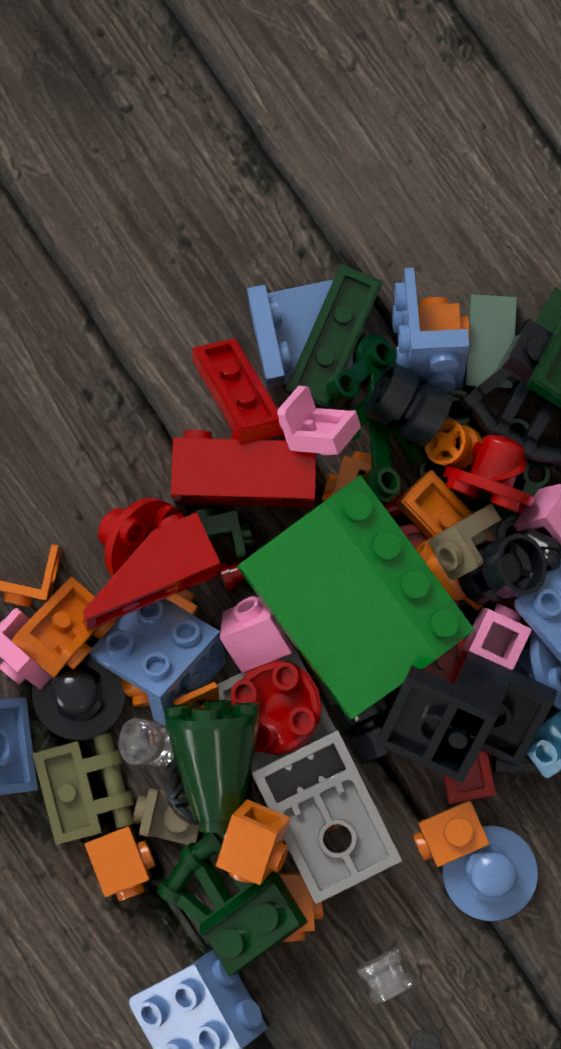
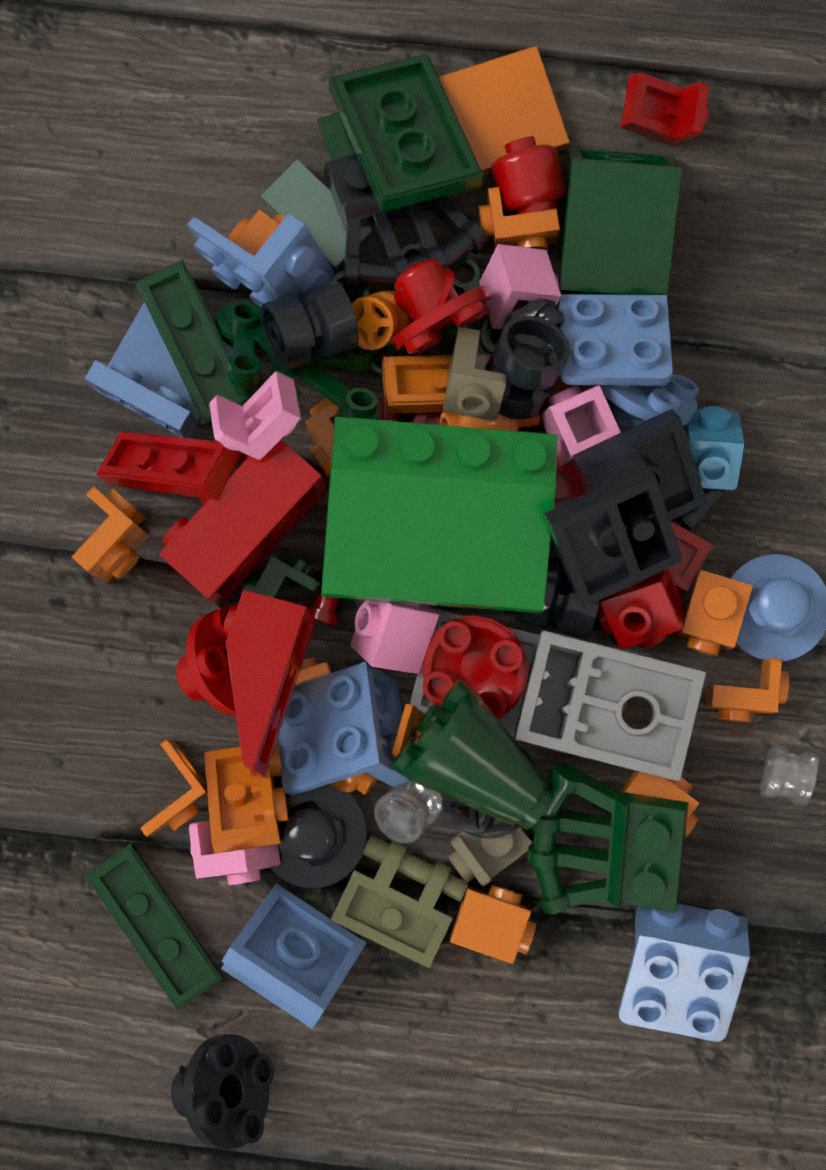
camera: 40 degrees left, 0 degrees up
(155, 401) = (114, 544): none -> orange bracket
(254, 843) = (581, 789): orange brick -> none
(405, 902) = (739, 702): none -> orange bracket
(410, 787) = (643, 611): none -> red brick

